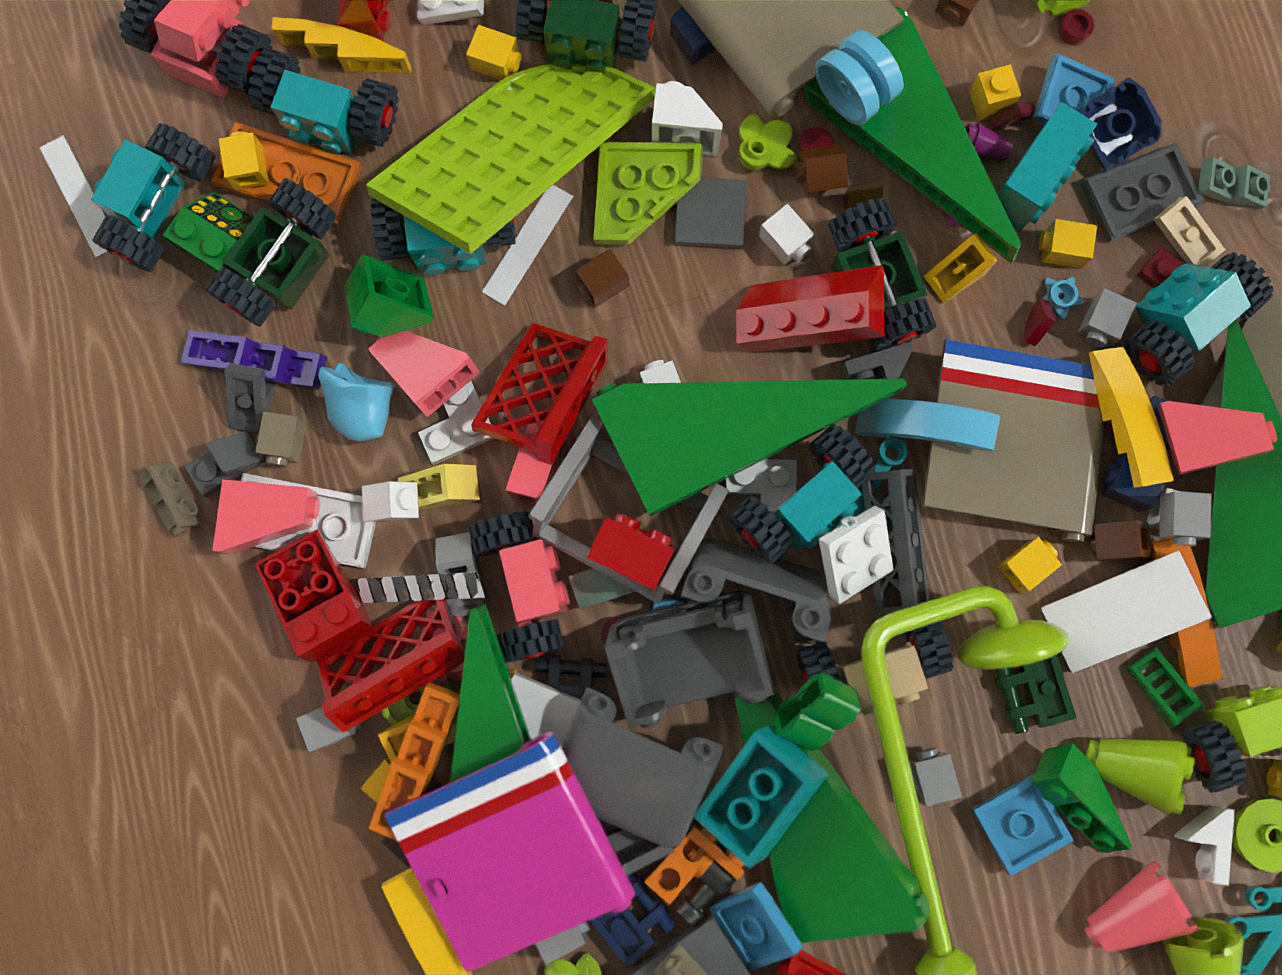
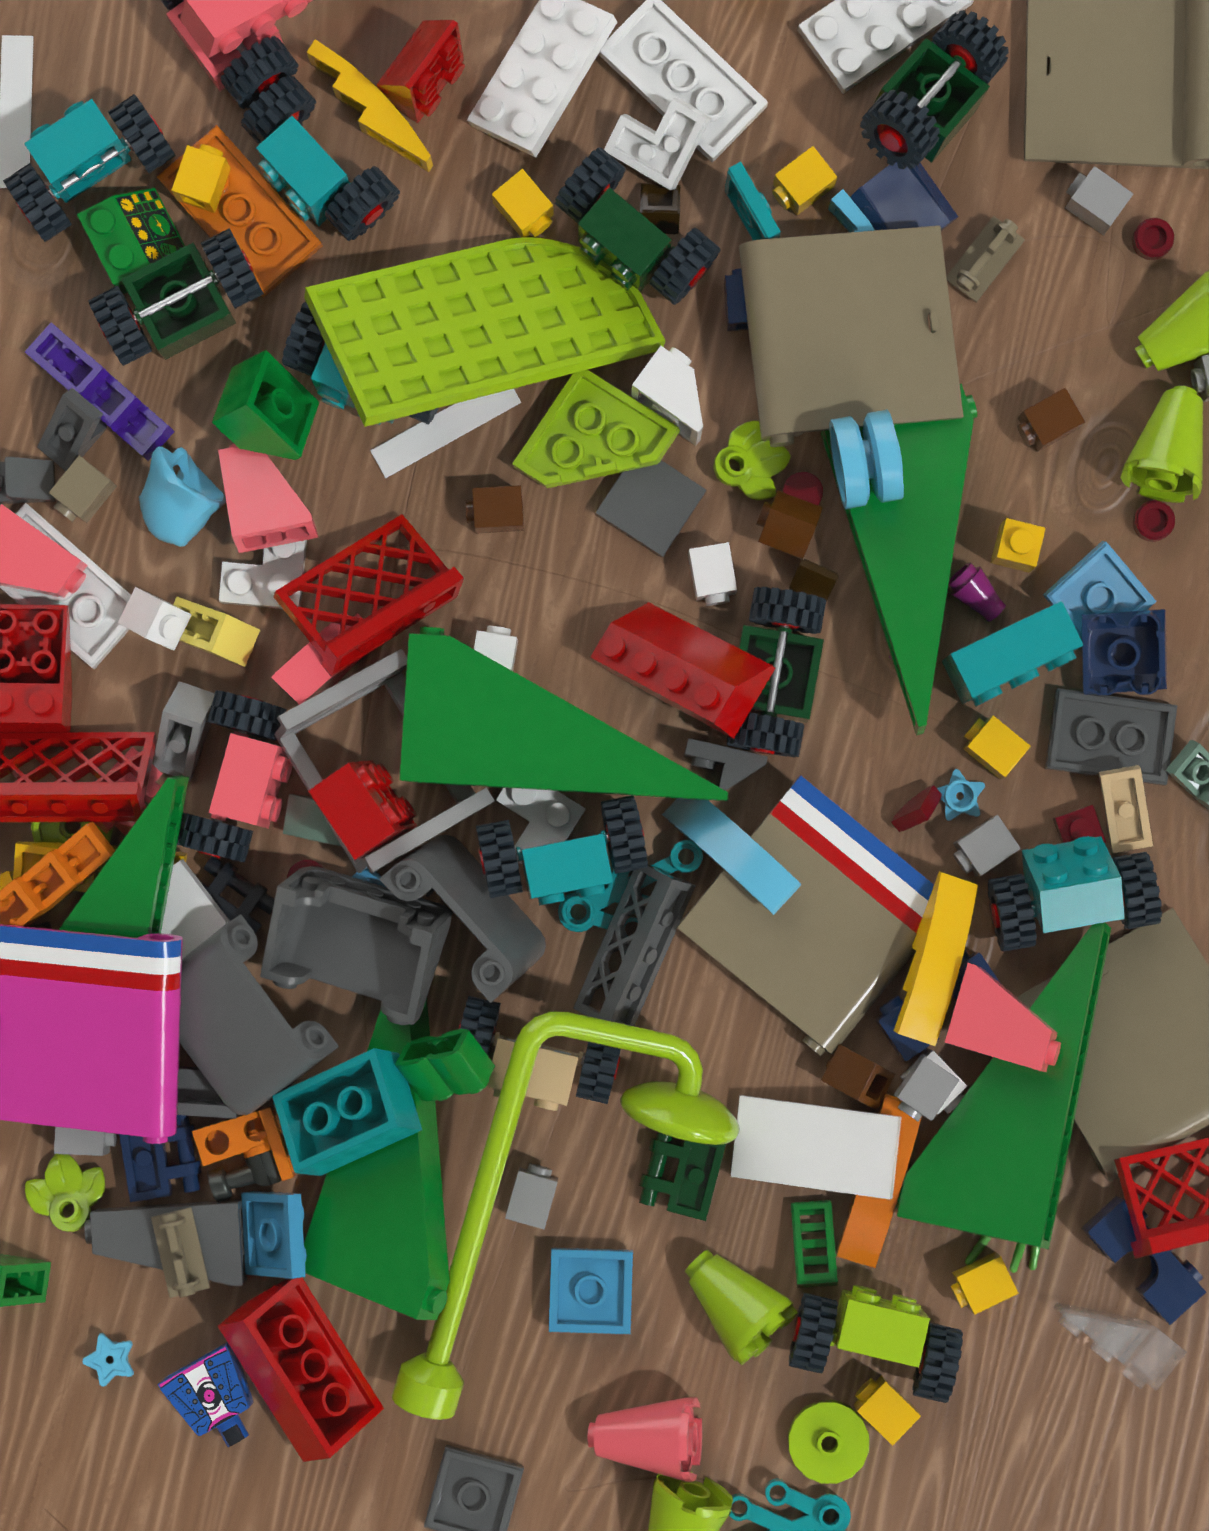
camera: 30 degrees right, 5 degrees up
(420, 587) = (135, 722): sticker -> none
(856, 554) = (577, 937): white plate -> none
(961, 268) = (866, 710): yellow slope -> none
(1020, 110) = (1025, 578): dark red tile -> none
(1030, 564) = (755, 1047): yellow brick -> none
(1080, 795) = (662, 1293): green slope -> none
(1214, 832) = (771, 1405): white slope -> none

